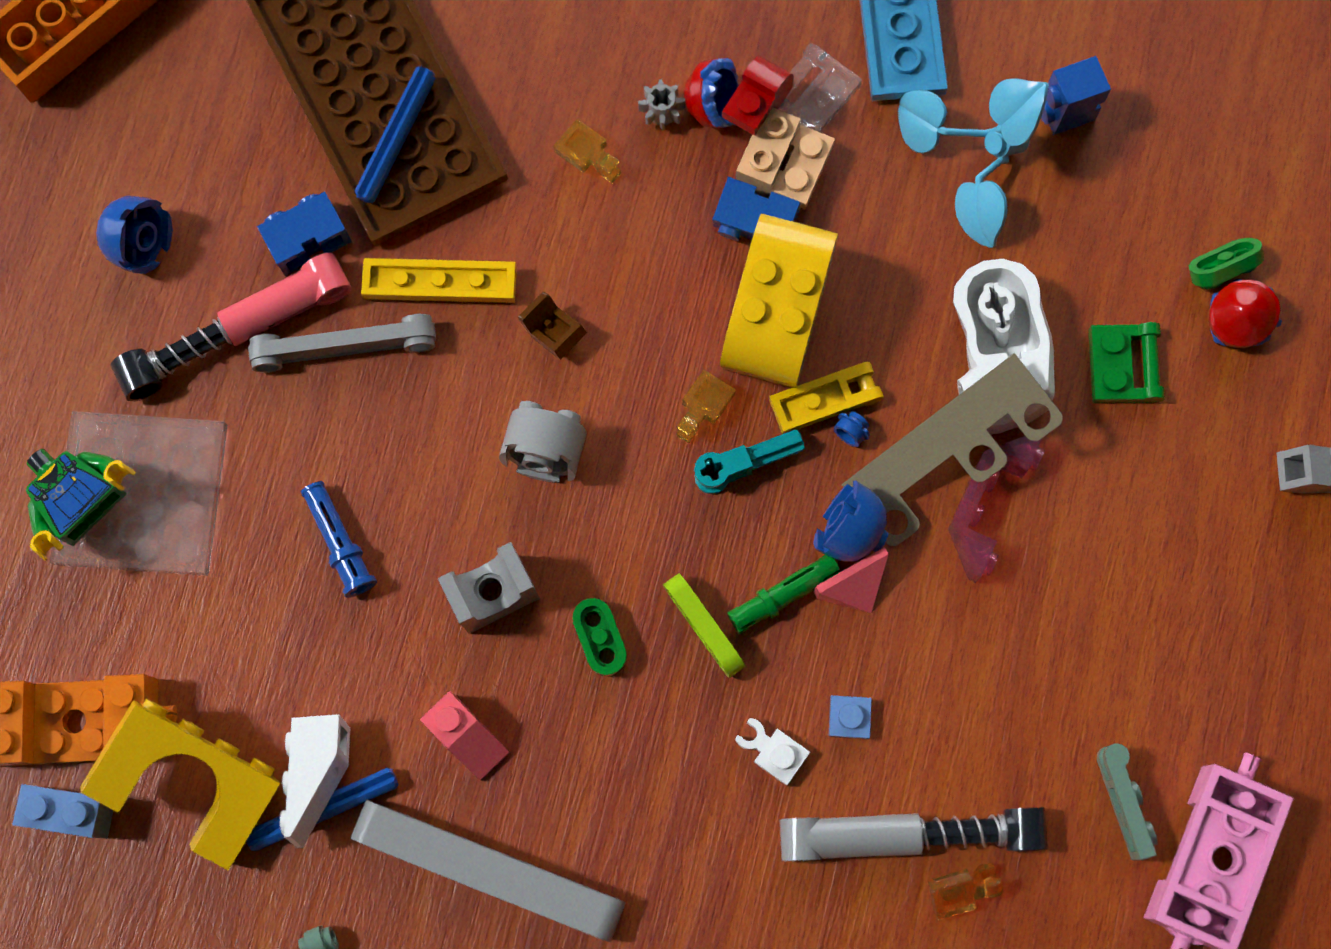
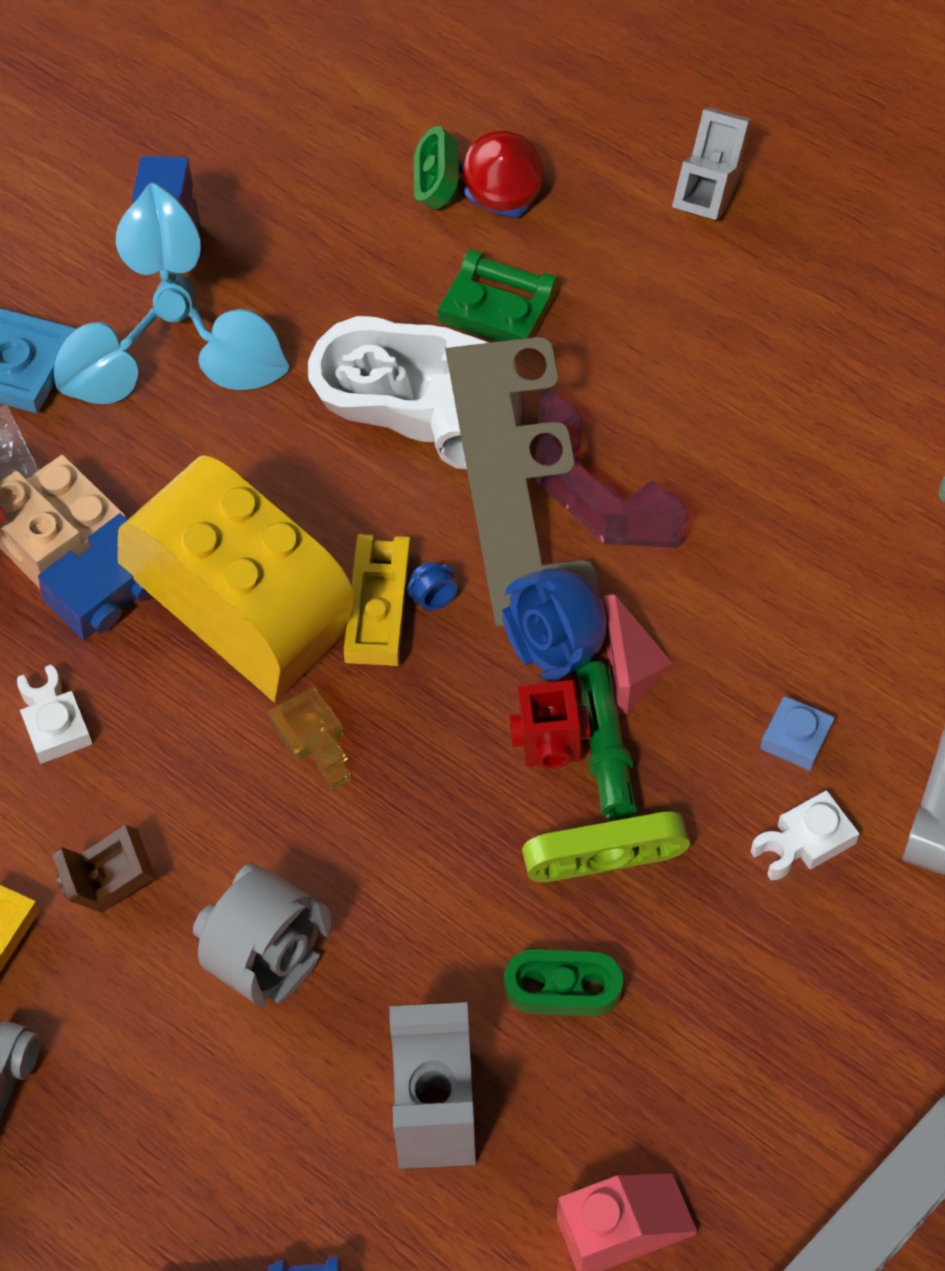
camera: 70 degrees left, 20 degrees down
(645, 241) = (52, 718): none -> white plate
(742, 461) = (411, 720): teal connector -> none
(774, 539) = (549, 724): none -> red brick

